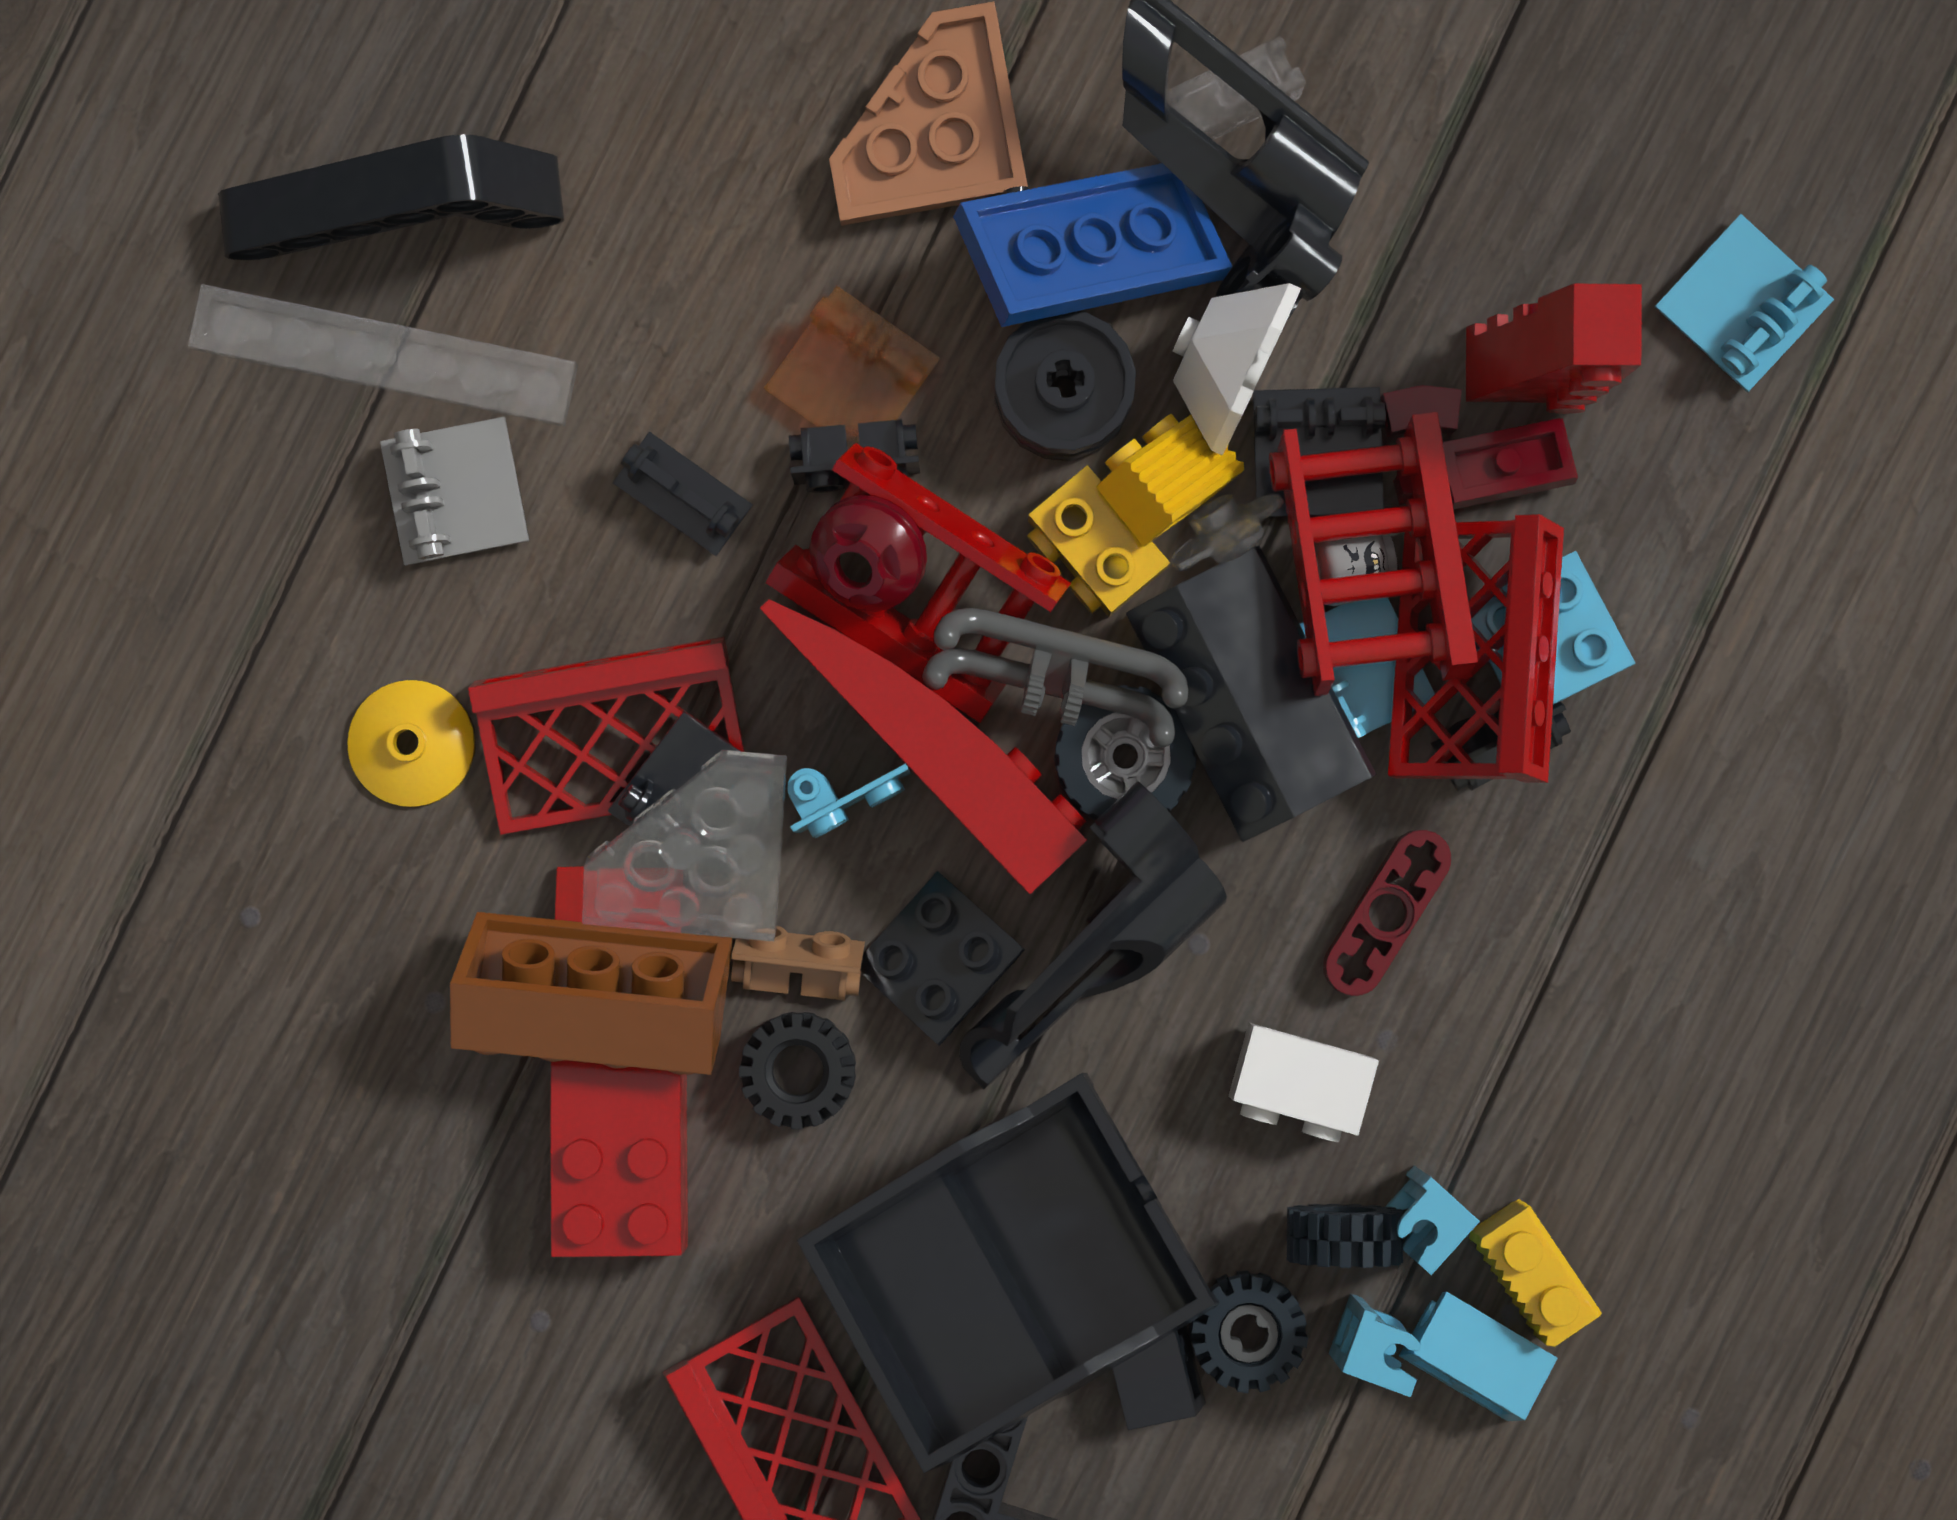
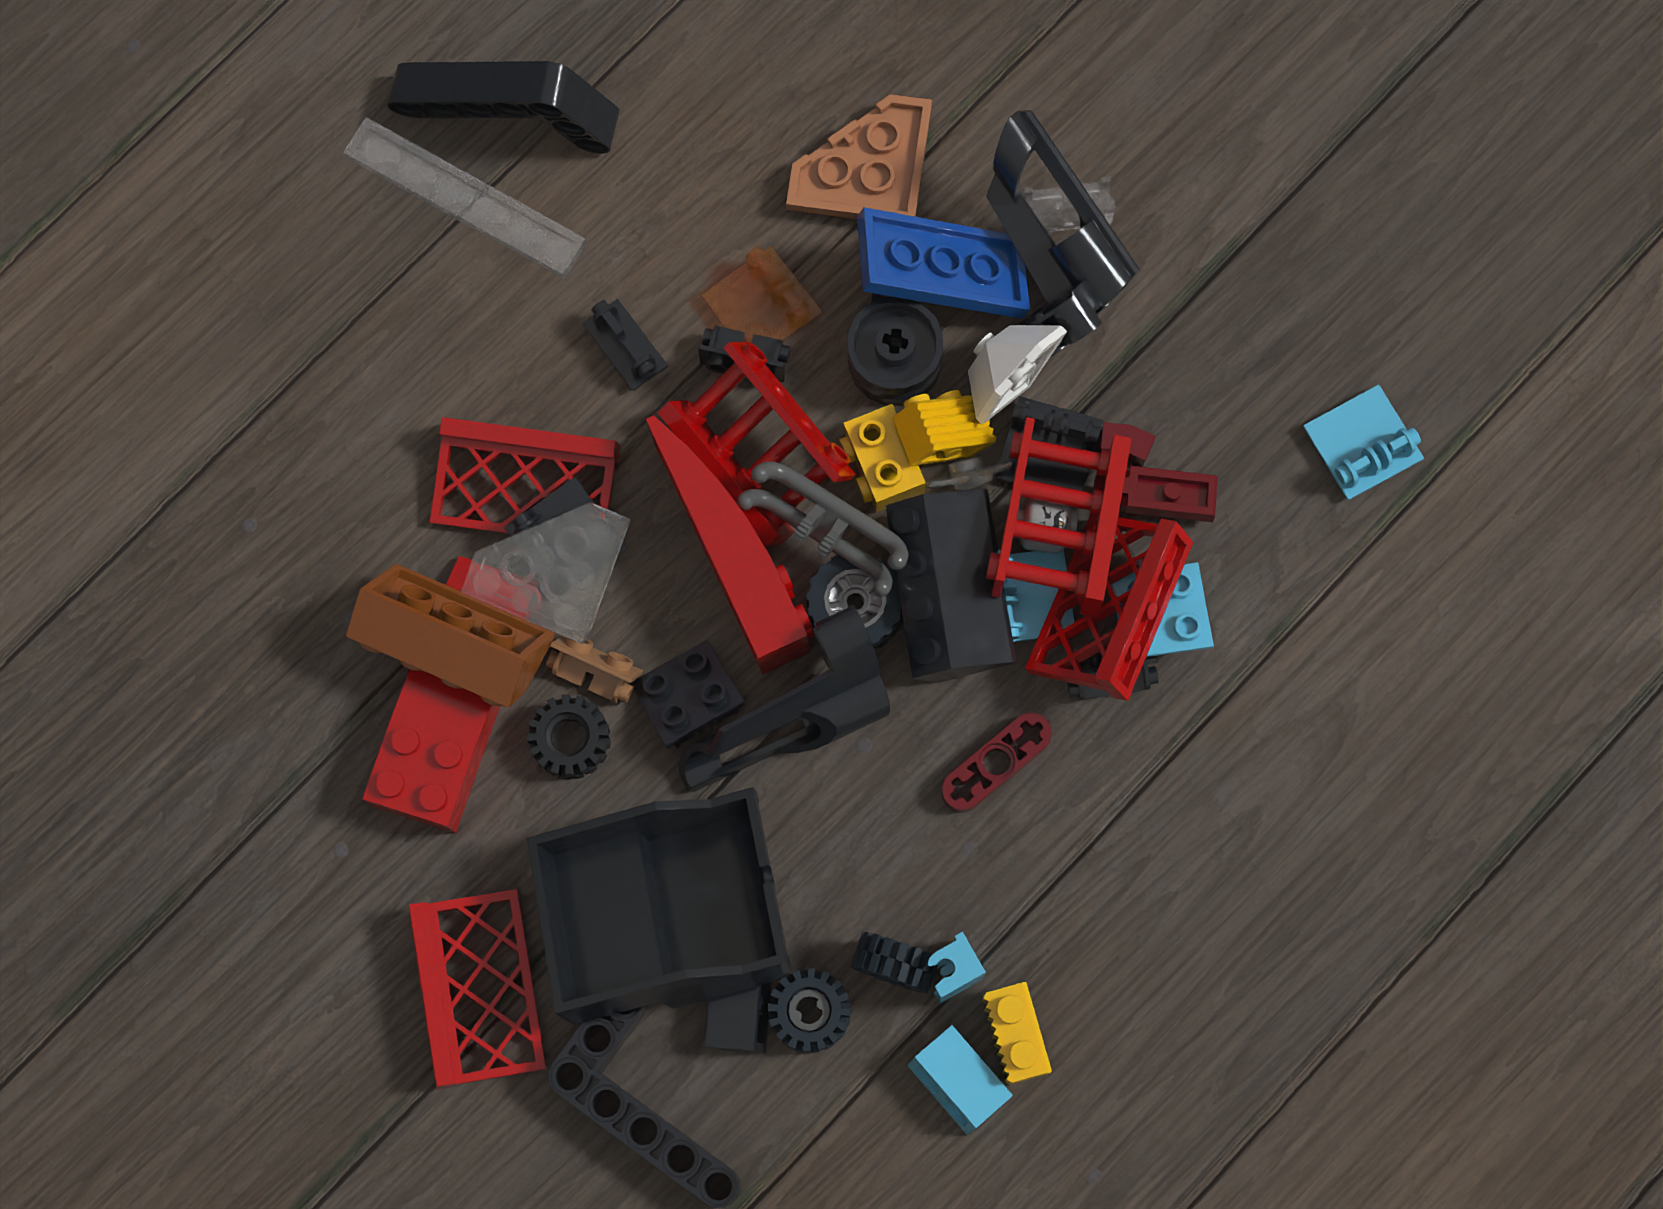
camera: 25 degrees right, 10 degrees down
(443, 747) = (397, 467): yellow dish -> none
(454, 490) = (479, 296): light grey hinge -> none
(823, 810) = (645, 570): medium azure hinge -> none
(883, 537) = (744, 410): dark red piece -> none
(1303, 1081) = (900, 851): white brick -> none
(1366, 1346) = (886, 1035): medium azure hinge -> none
(1557, 349) = (1222, 421): red wedge -> none

